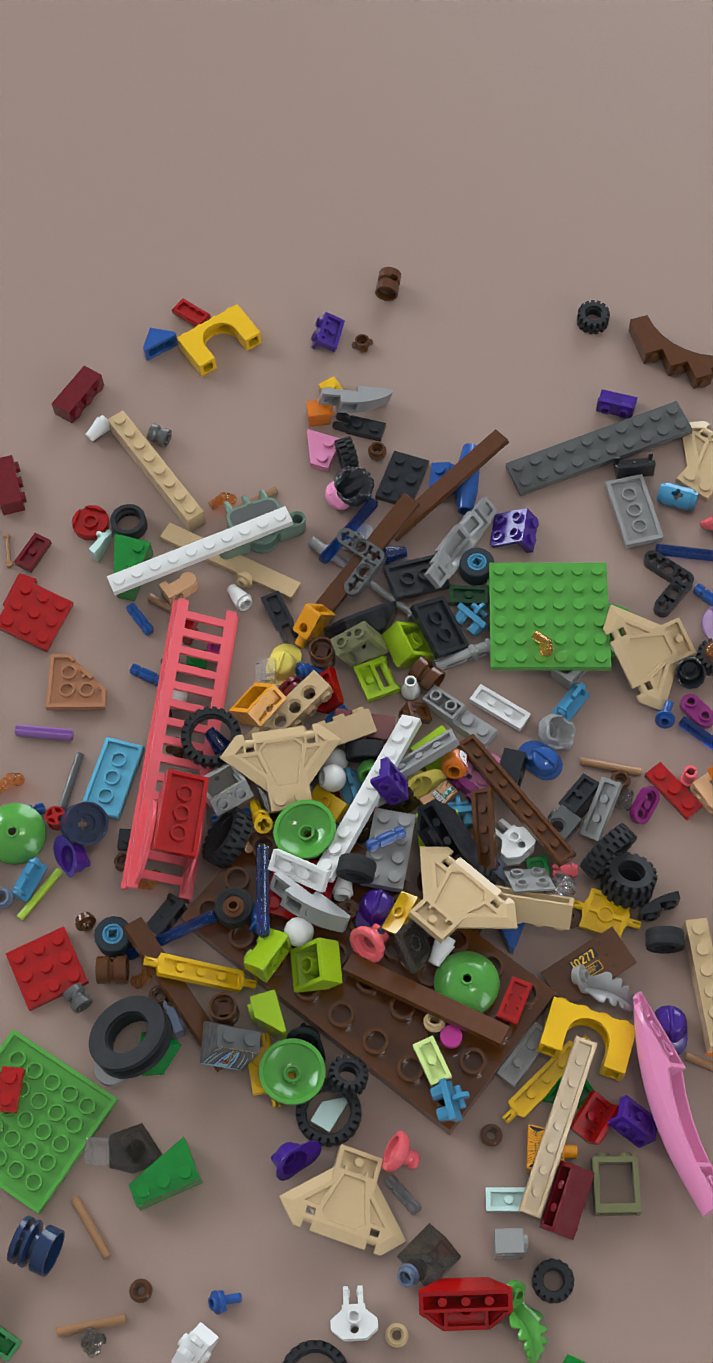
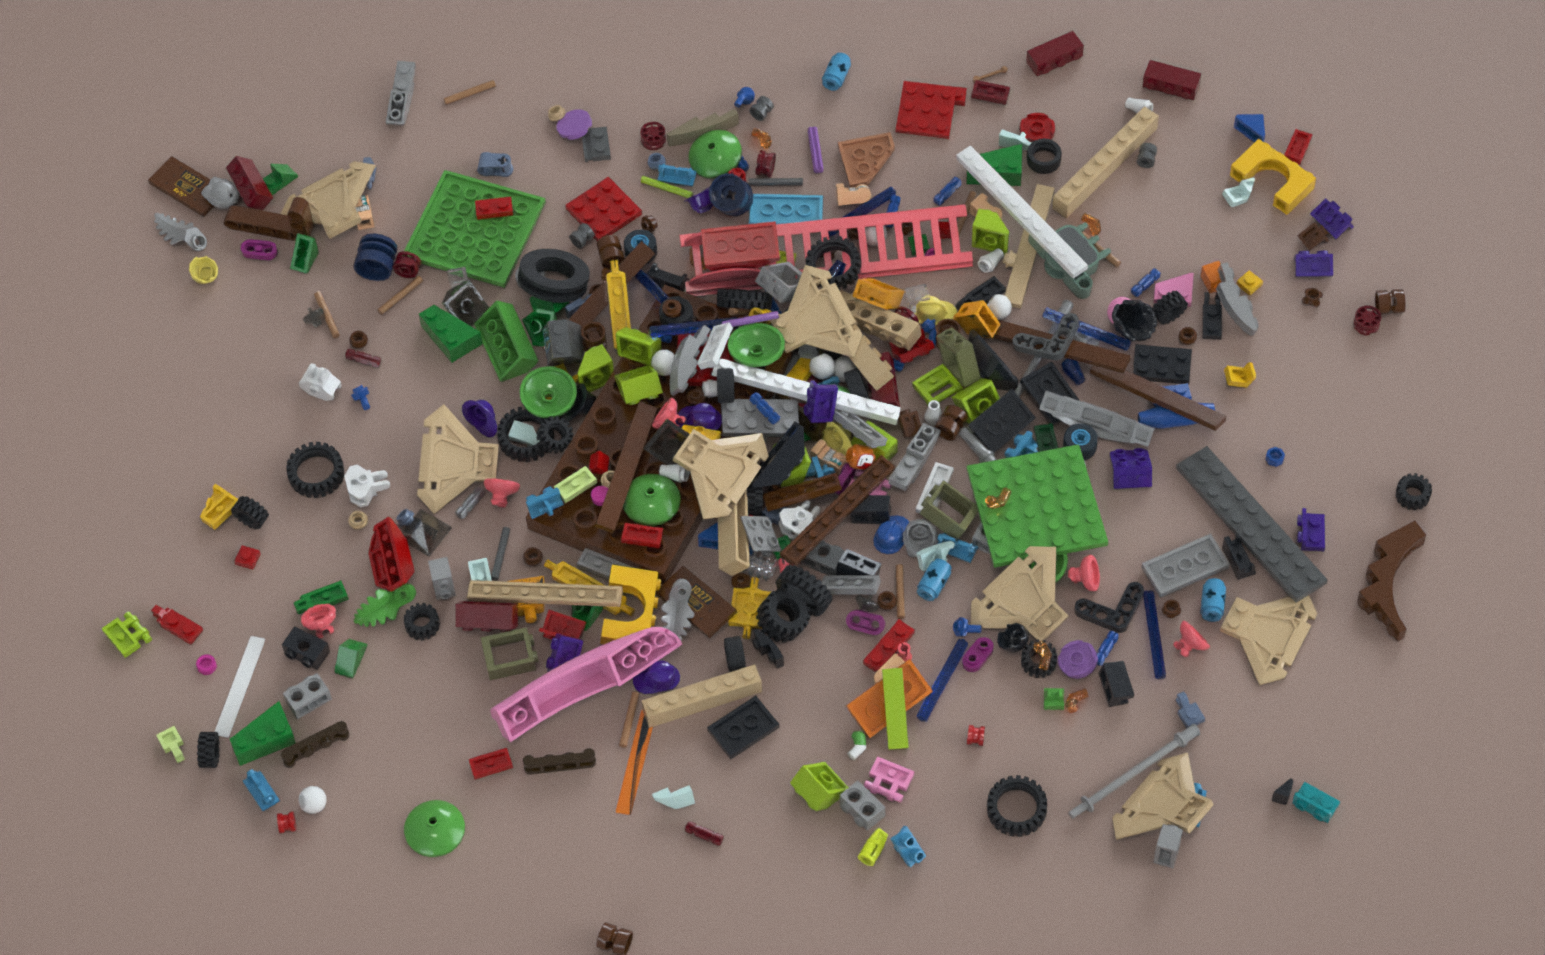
camera: 75 degrees right, 5 degrees down
(49, 783) = (765, 163): none -> dark red wheel
(55, 1209) = (405, 265): none -> dark red wheel
(118, 707) = (852, 195): none -> light nougat leg
(135, 699) = (868, 206): none -> clear blue axle
(168, 1289) = (363, 358): none -> dark red axle
(187, 1069) = (536, 322): none -> green slope
(196, 1111) = (506, 341): none -> bright green slope
(210, 586) = (989, 232): none -> lime slope
(227, 372) = (1239, 194): none -> light aqua slope
(271, 822) = (753, 319): none -> medium lavender bar
(281, 306) = (1331, 218): none -> dark purple bracket
(296, 325) = (1313, 236): none -> reddish brown bracket
(297, 600) = (1000, 306): none -> white piece
(305, 471) = (1145, 282): none -> blue axle
(401, 308) = (1366, 320): none -> dark red wheel
(408, 1031) = (599, 463): none -> red slope
(435, 416) = (1240, 375): none -> yellow bracket
(477, 1171) = (500, 553): none -> dark grey bar
(530, 412) = (1275, 456): none -> blue tile
(537, 679) = (955, 500): none -> olive window
(577, 718) = (933, 552): none -> light aqua slope
(601, 720) = (934, 579): none -> dark azure piece
(630, 593) = (1087, 573): none -> coral hair
(678, 529) = (1171, 604): none -> reddish brown plate

